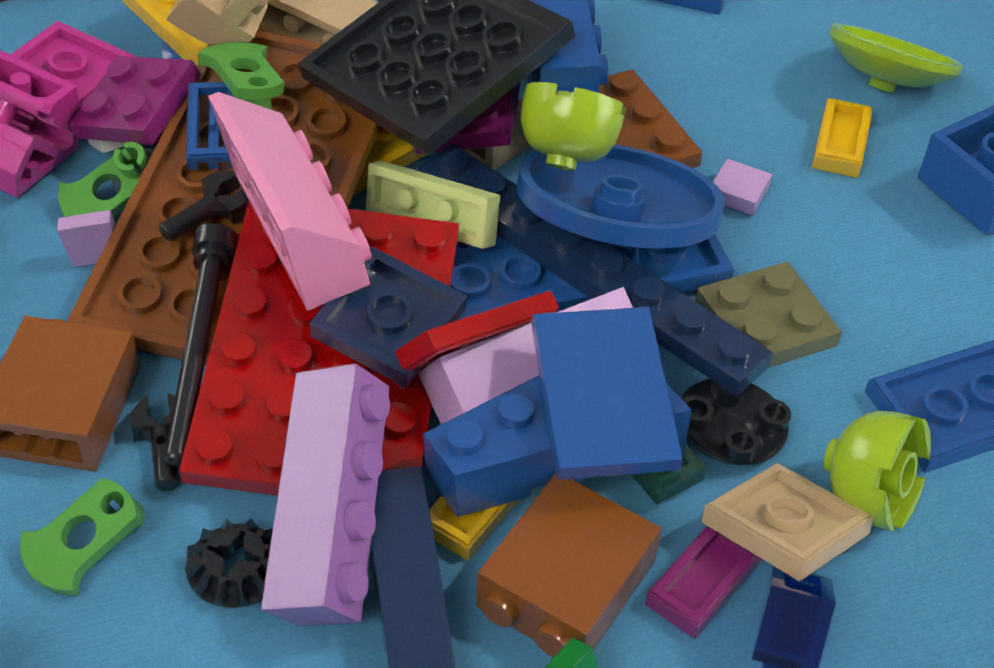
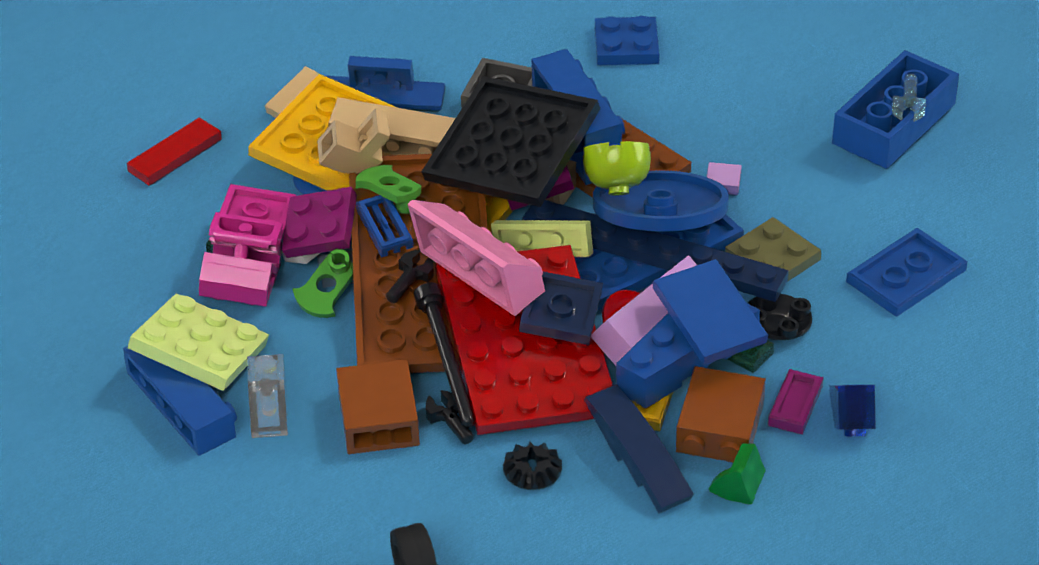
camera: 15 degrees left, 5 degrees down
(62, 568) = (434, 494): bright green piece -> none
(85, 235) = (337, 316): lavender tile -> none
(327, 497) = (578, 409): brick -> none
(473, 329) = (619, 300): red tile -> none
(787, 521) = (830, 358): tan tile -> none
(842, 137) = (775, 129): yellow tile -> none
(877, 465) = (869, 317): lime cylinder -> none
(891, 59) = (789, 67): lime dish -> none

